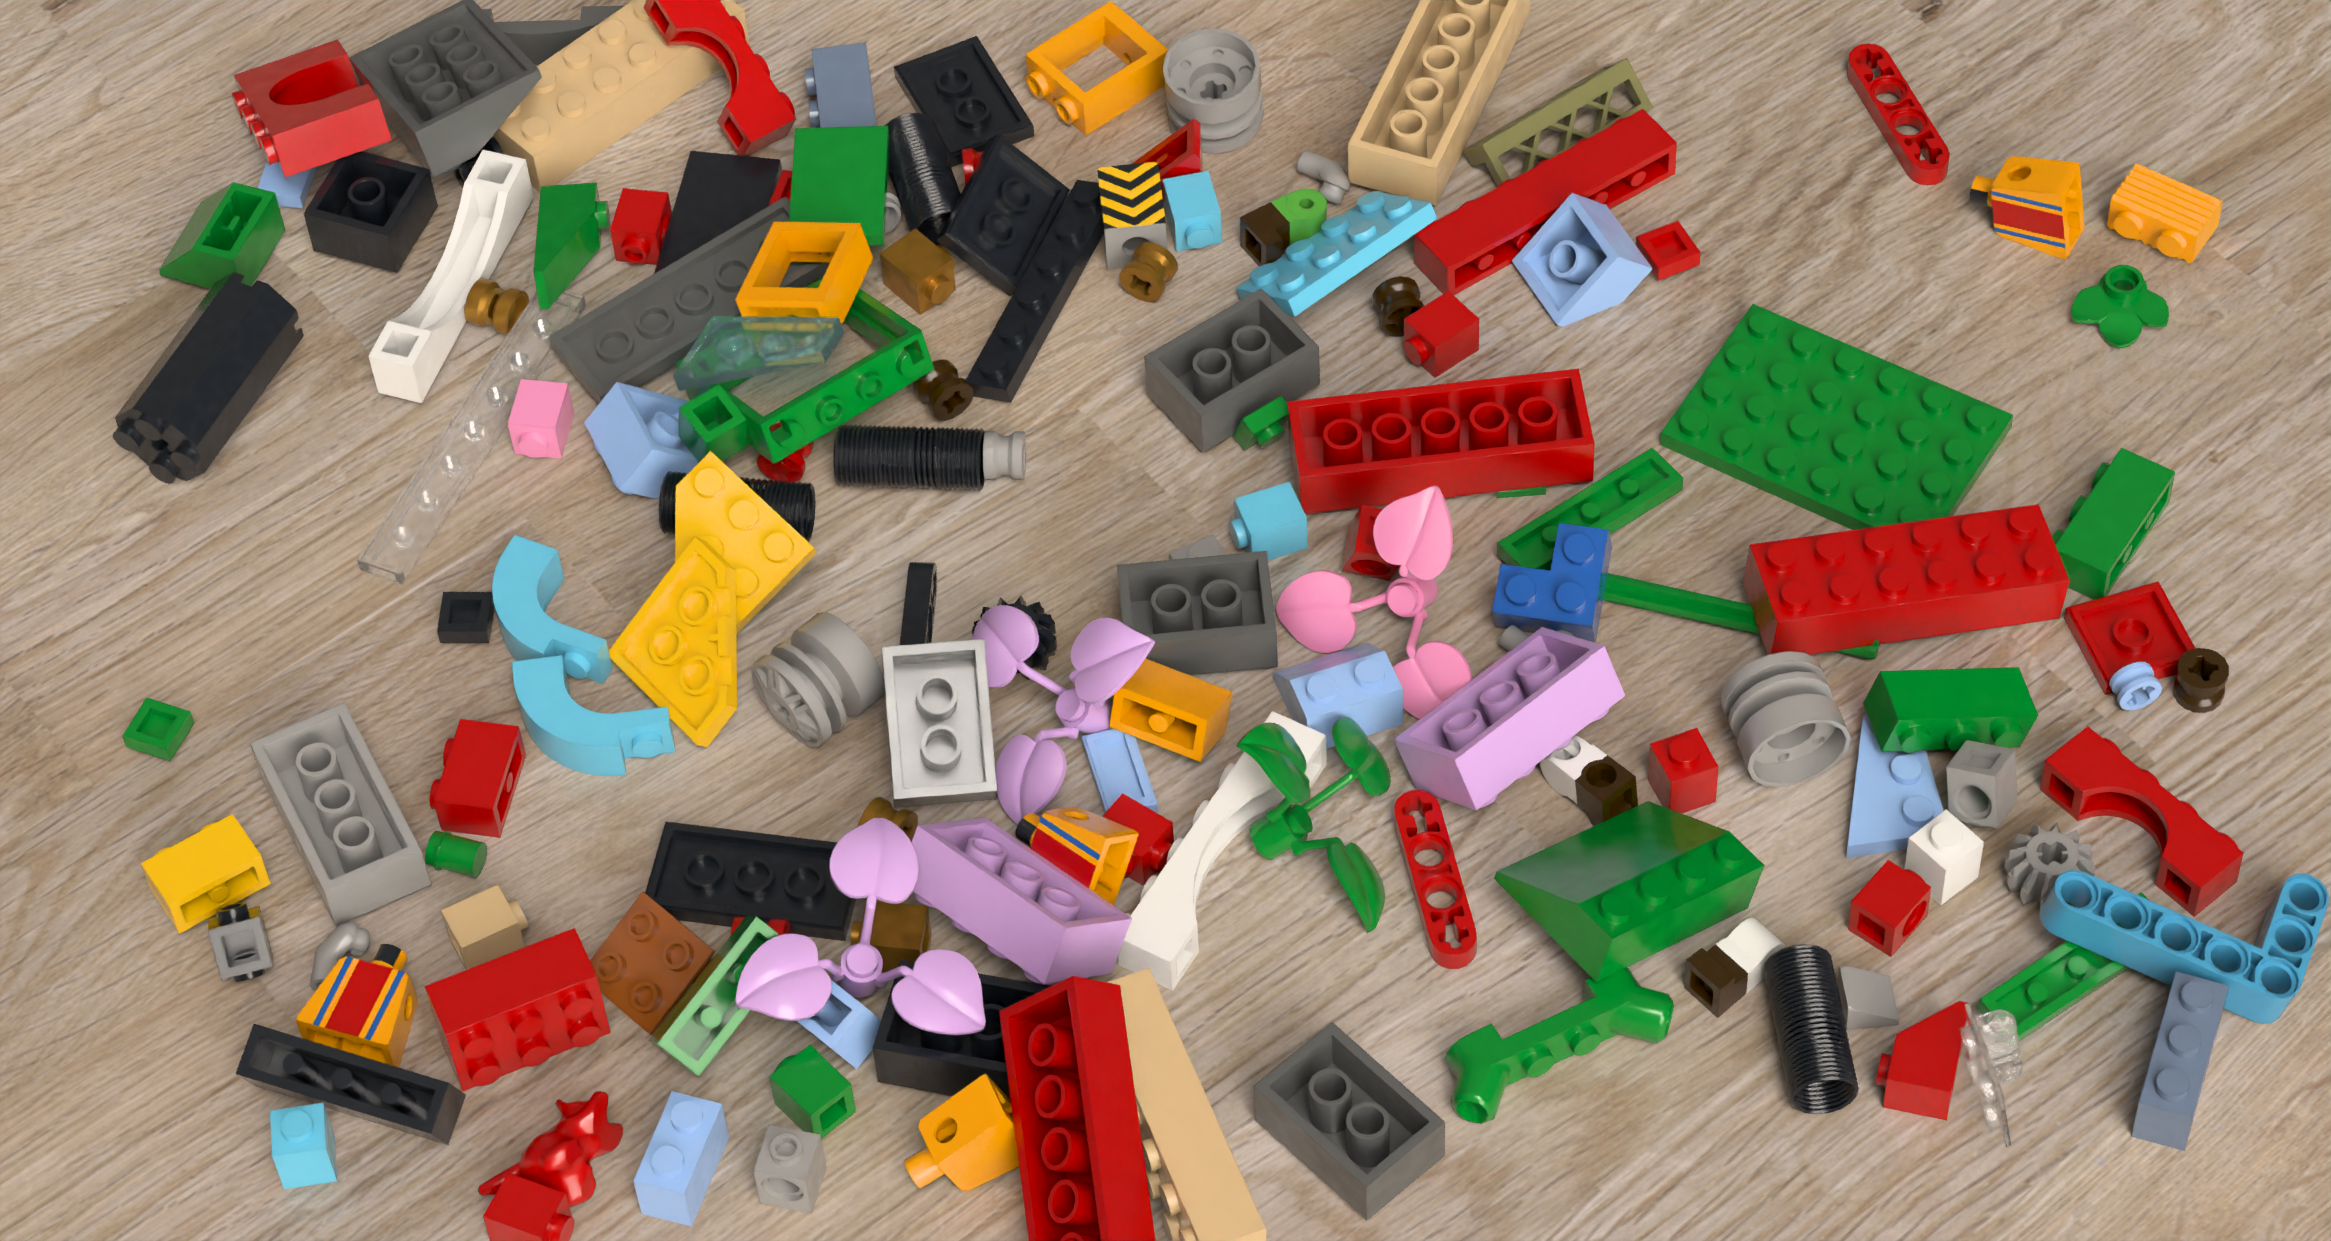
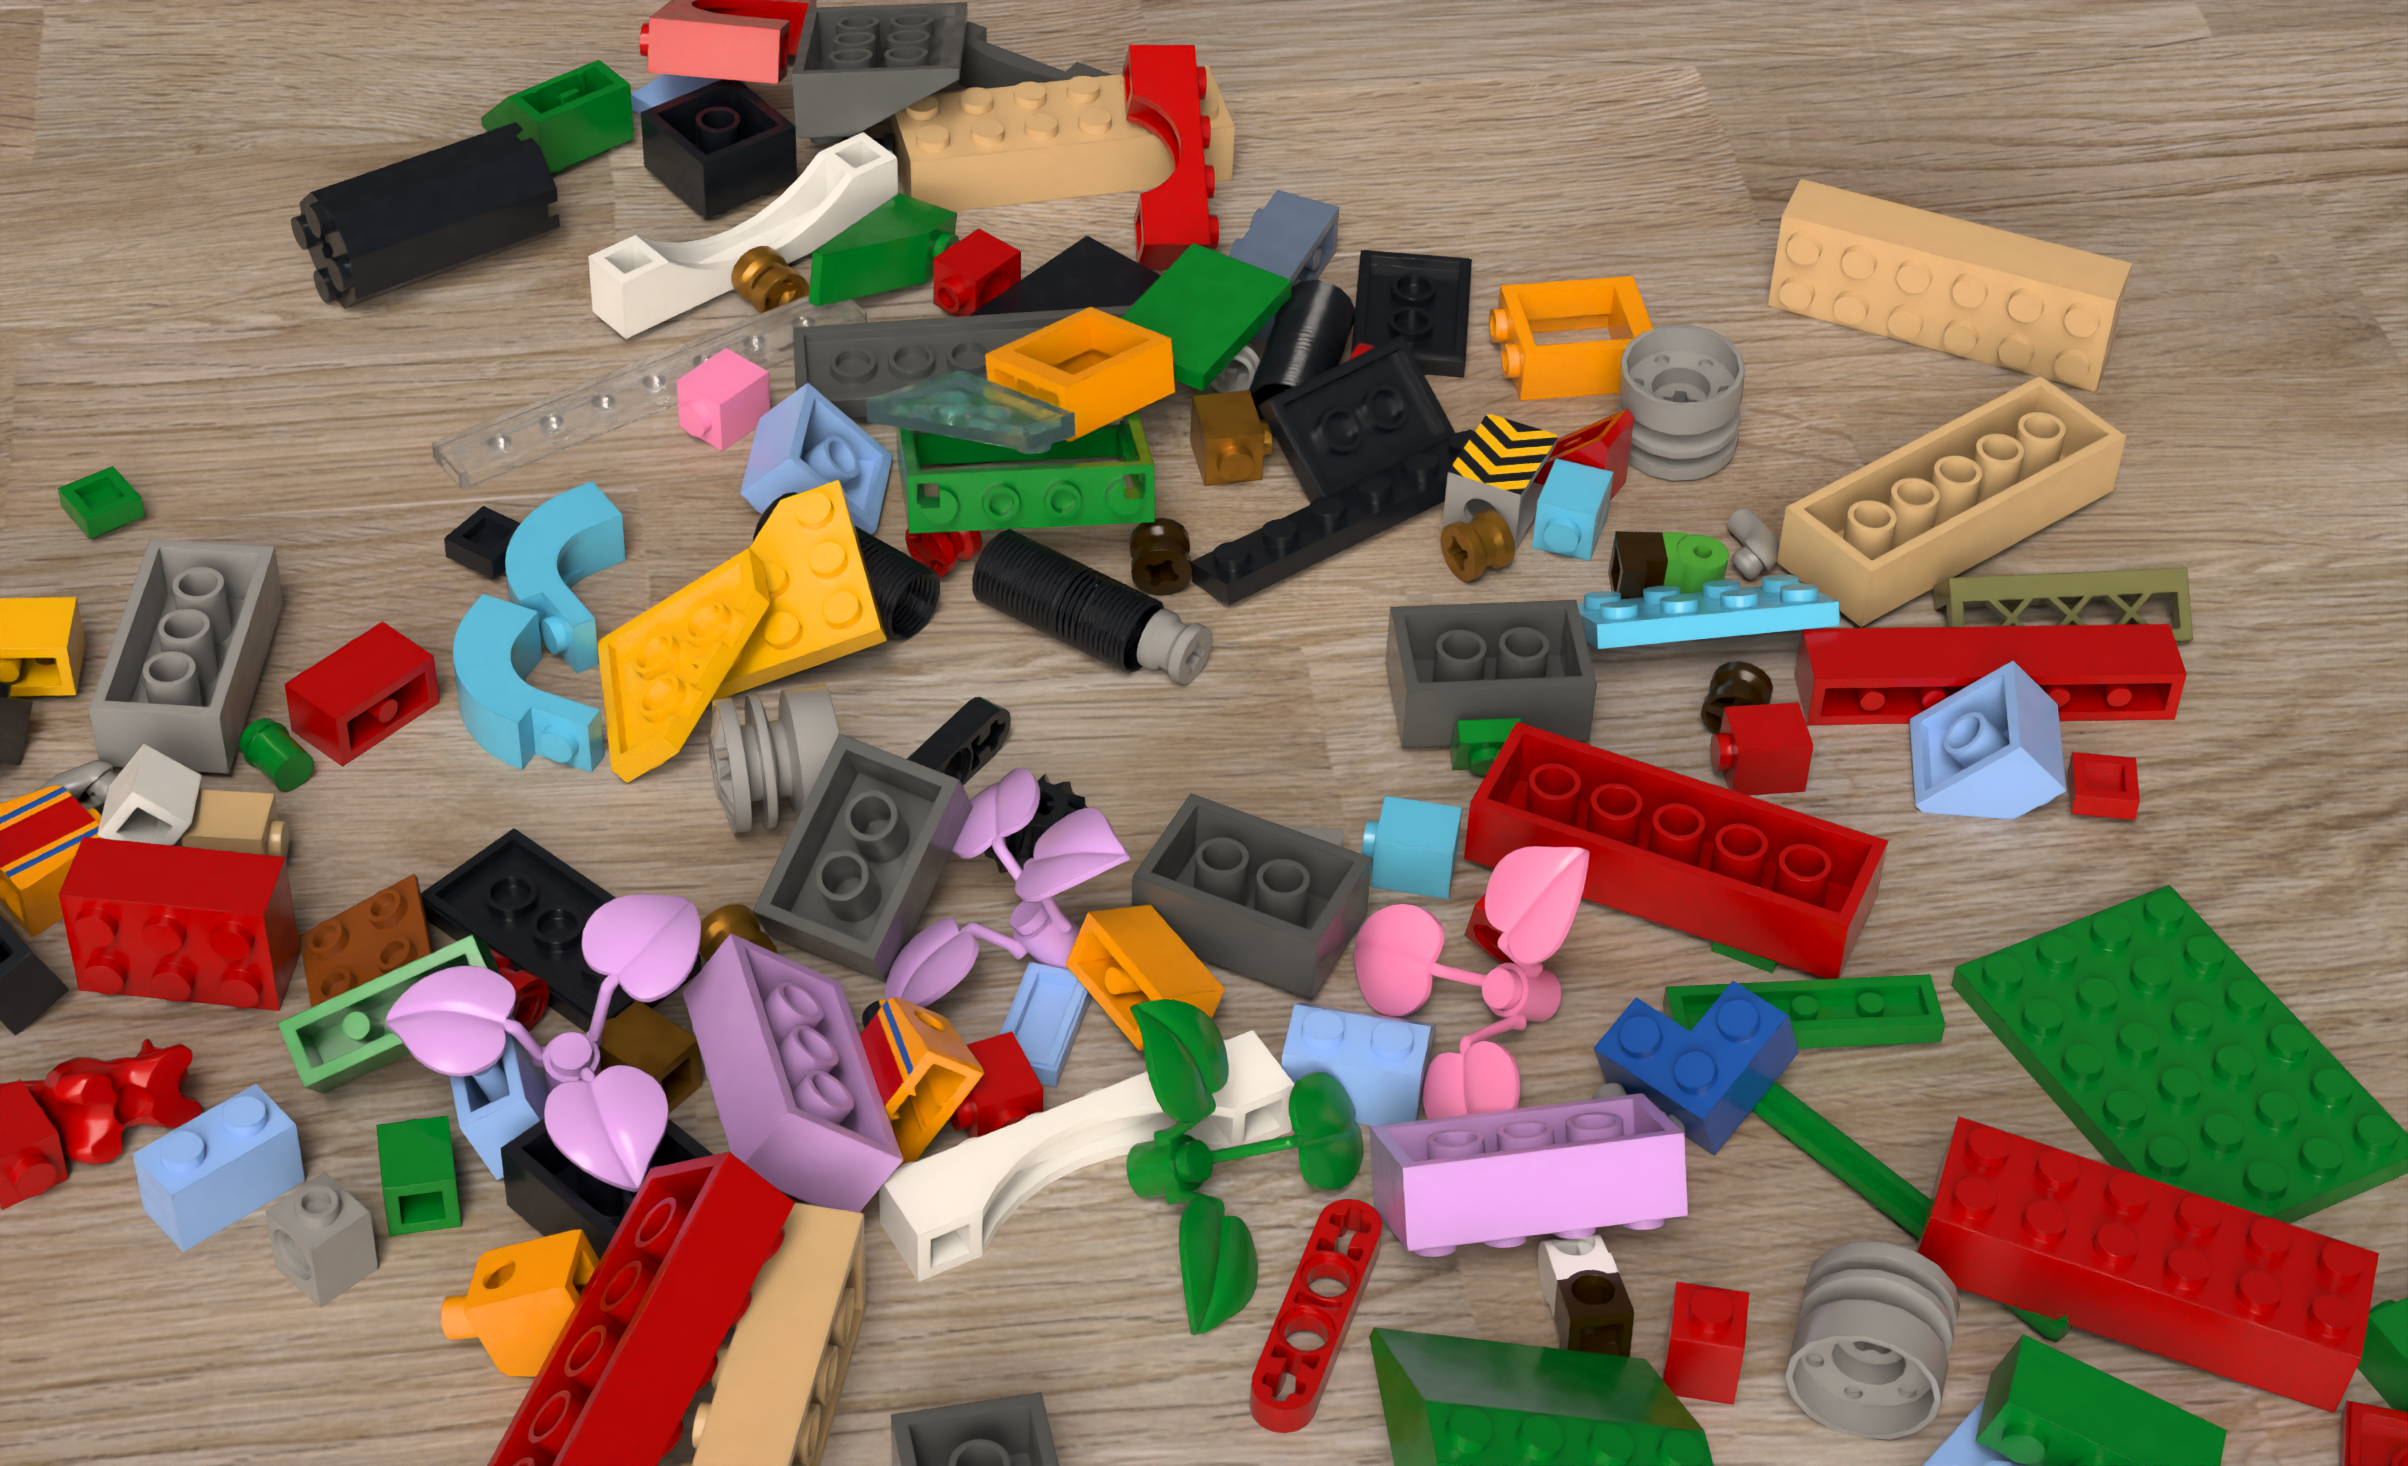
camera: 25 degrees right, 10 degrees down
(422, 938) = (150, 800): none -> white brick
(712, 425) = (873, 469): green brick -> none

